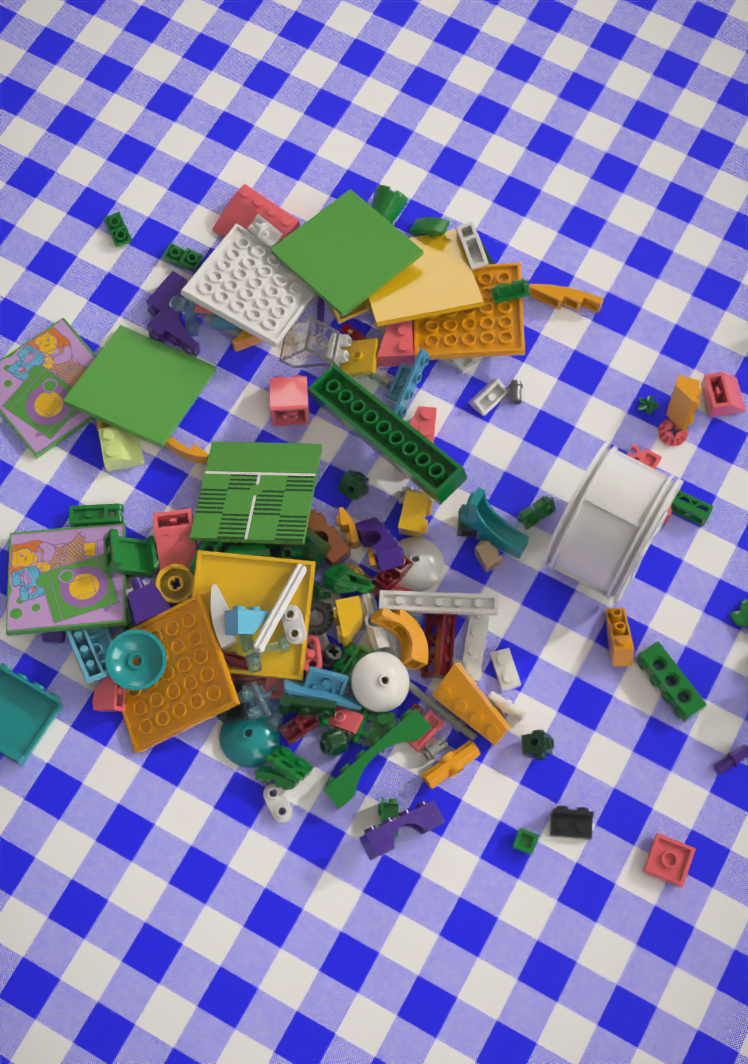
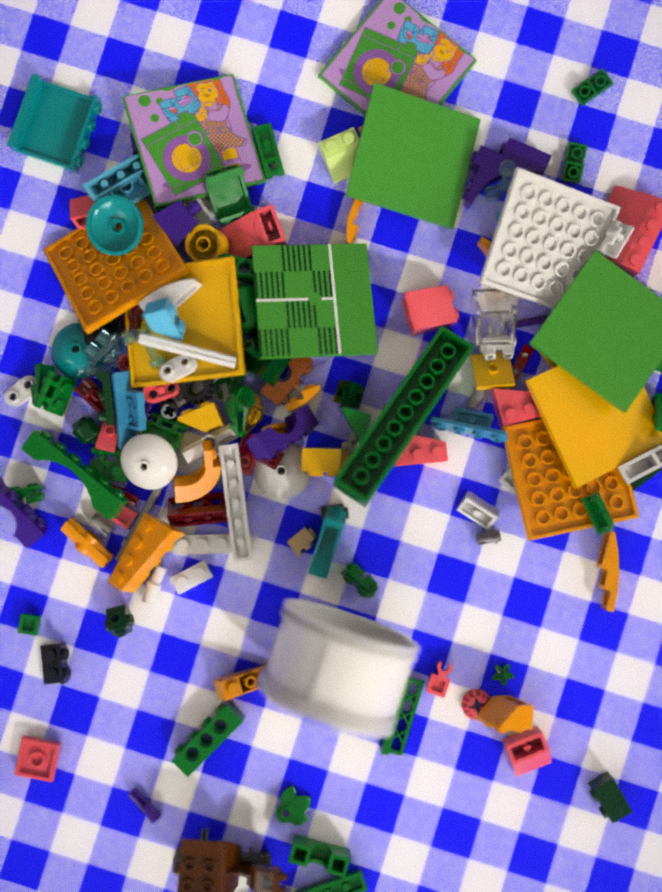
camera: 80 degrees right, 20 degrees up
(384, 479) = (358, 421): none -> green slope

